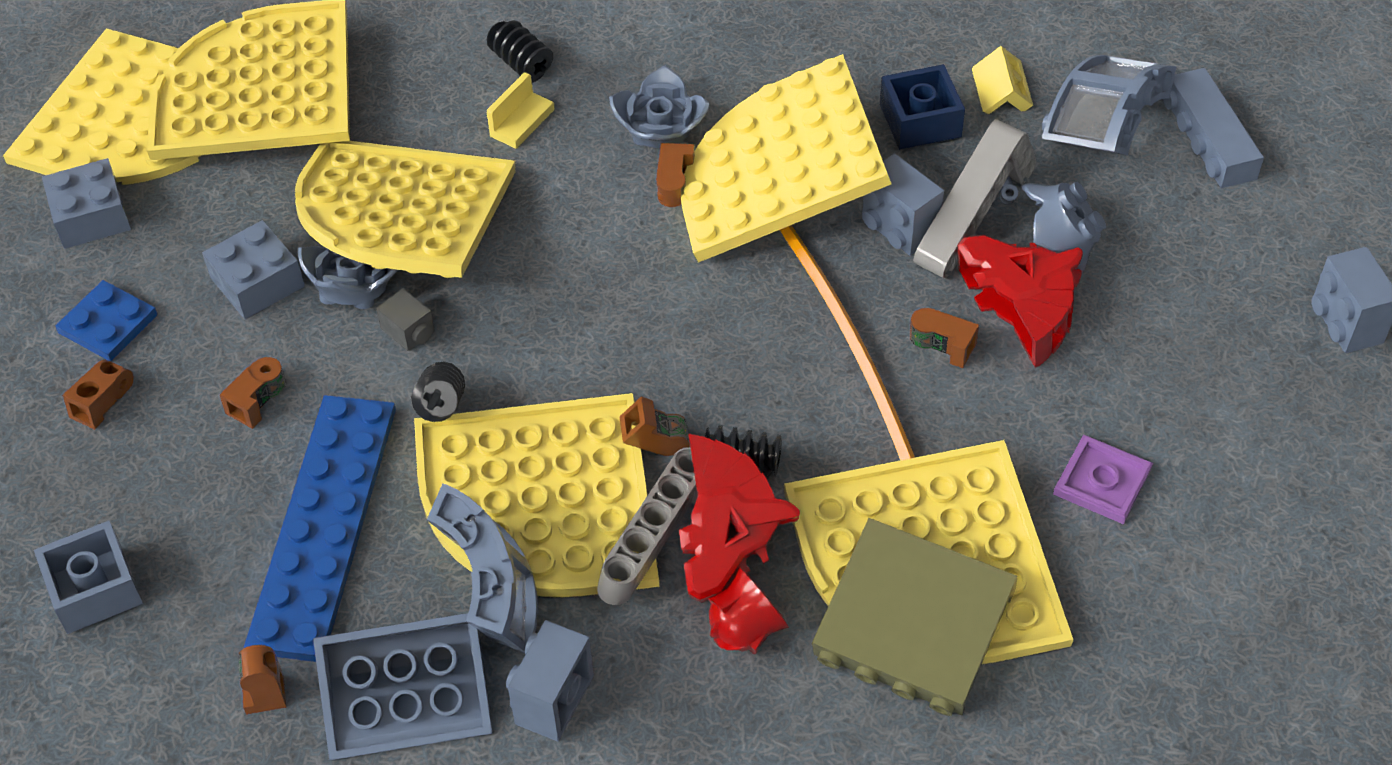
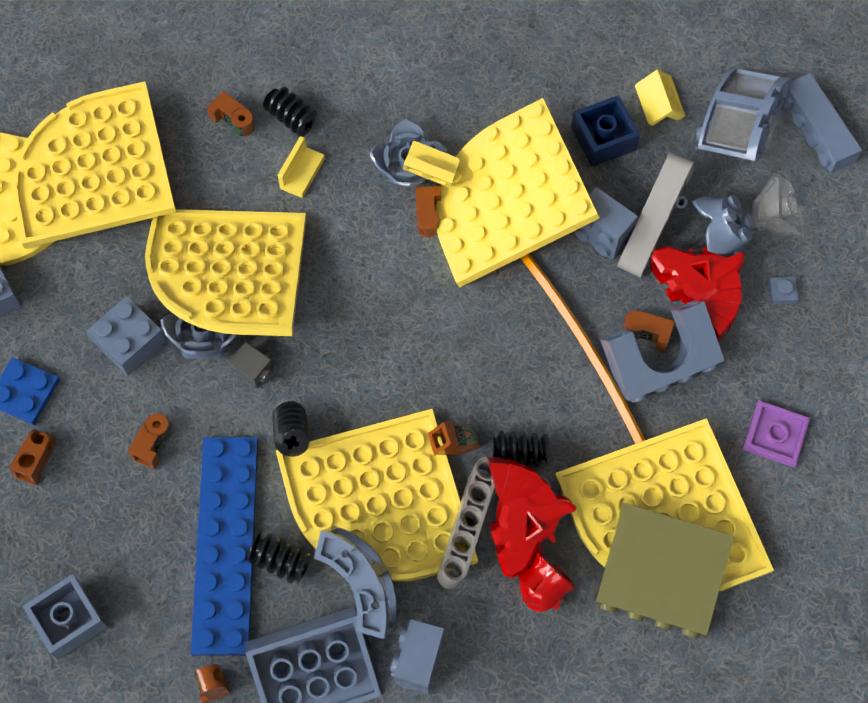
camera: 10 degrees left, 15 degrees up
(388, 542) = (278, 558): none -> black piece
(445, 46) = (231, 112): none -> dark orange leg
(684, 116) = (431, 164): none -> light yellow panel
(1006, 364) = (697, 353): none -> sand blue arch
(1136, 312) = (783, 290): none -> sand blue plate
(1140, 218) = (777, 210): none -> clear slope

